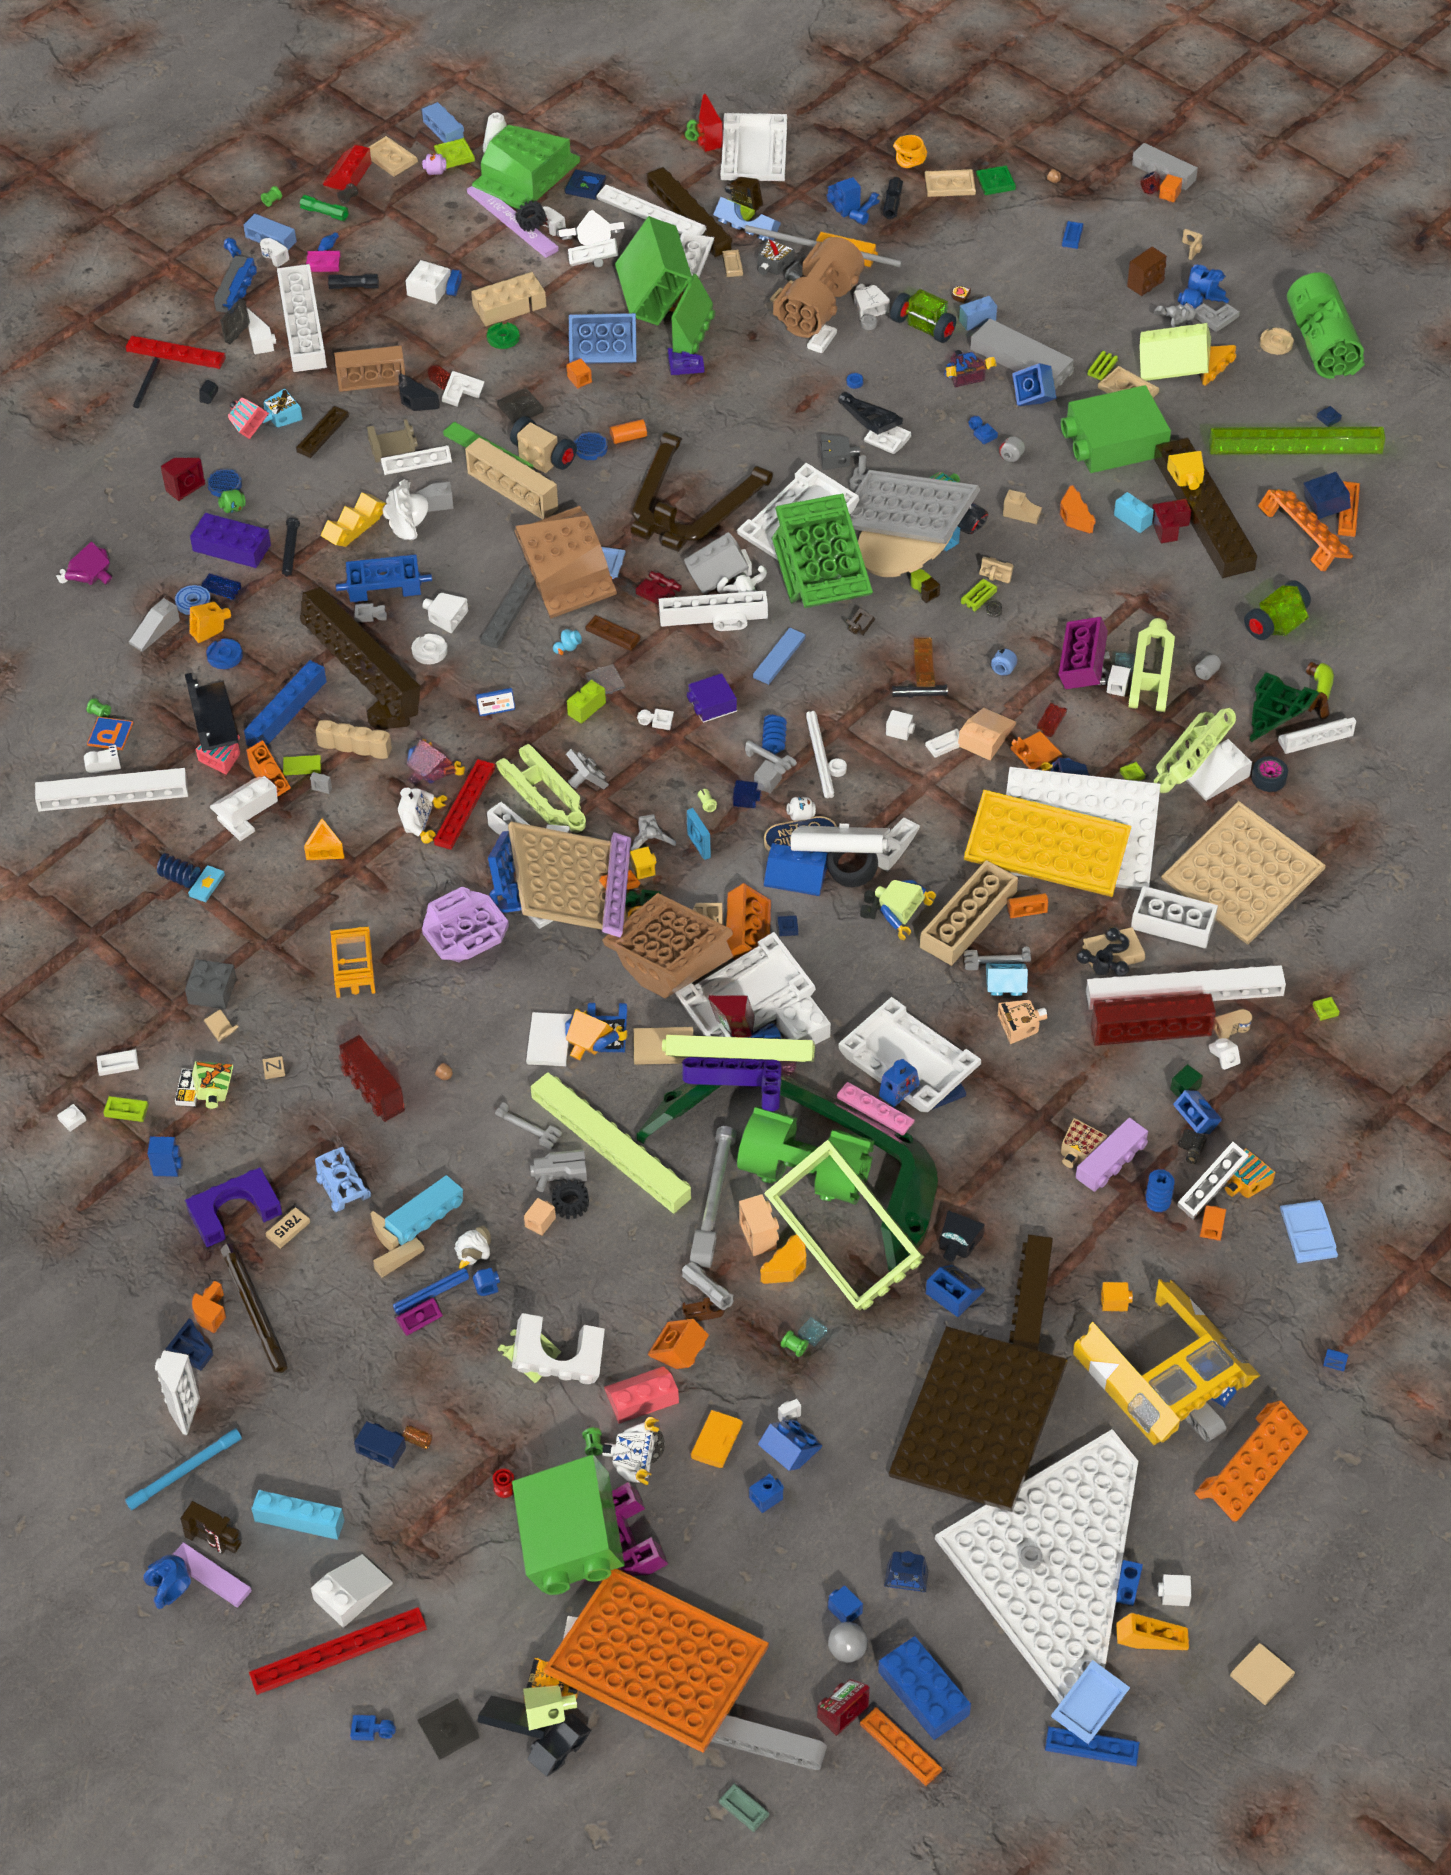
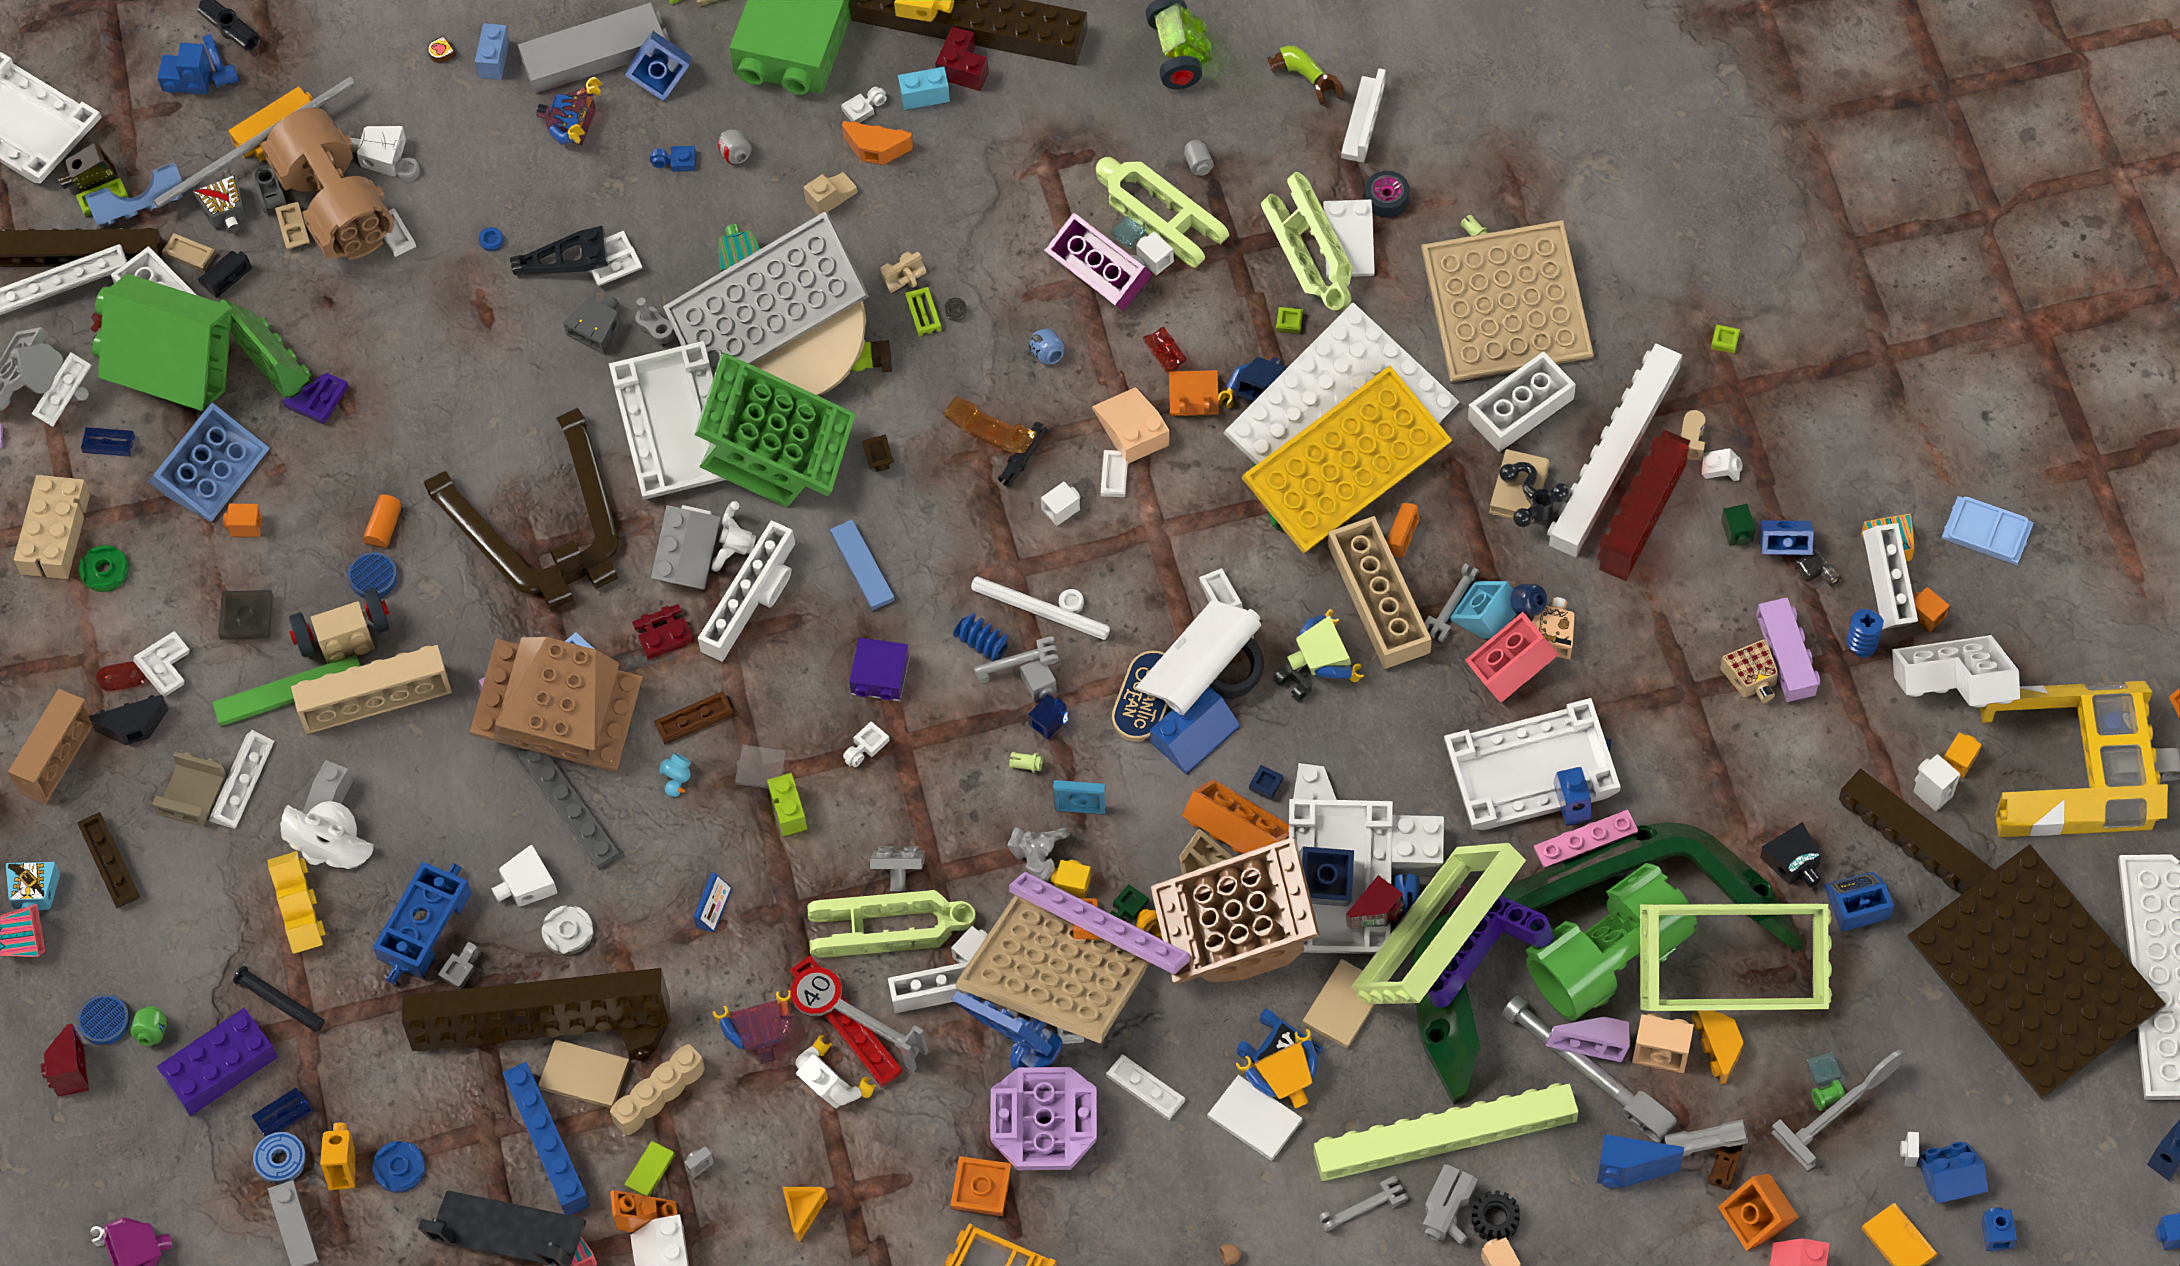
camera: 55 degrees left, 10 degrees up
(342, 702) = (583, 1074): none -> tan tile
(401, 924) = (981, 1186): none -> orange plate
(470, 779) = (820, 991): none -> light grey piece
(529, 973) = (1145, 1087): none -> white tile
(594, 300) = (107, 446): none -> clear blue tile
(658, 1250) = (1633, 1161): none -> blue slope
(731, 284) = (225, 273): none -> black panel
(731, 1181) = (1593, 1037): none -> lavender slope
(734, 976) = (1328, 875): none -> dark blue brick
(801, 808) = (1111, 672): white head -> none
(806, 952) = (1313, 783): none -> white wing
(826, 1359) = (1796, 1143): none -> light grey piece
(925, 313) = (458, 103): brick -> none
(976, 1004) = (1511, 657): none -> coral slope
(1018, 991) = (1528, 599): none -> dark blue head
(1077, 1287) = (1936, 782): none -> white brick
(1095, 493) = (859, 108): none -> white plate
(1171, 1255) = (1971, 665): none -> white brick
(1277, 704) = (1307, 125): dark green wedge -> none
(1287, 830) = (1473, 226): none -> yellowish green pin
(1335, 1360) = (2159, 603): blue tile -> none

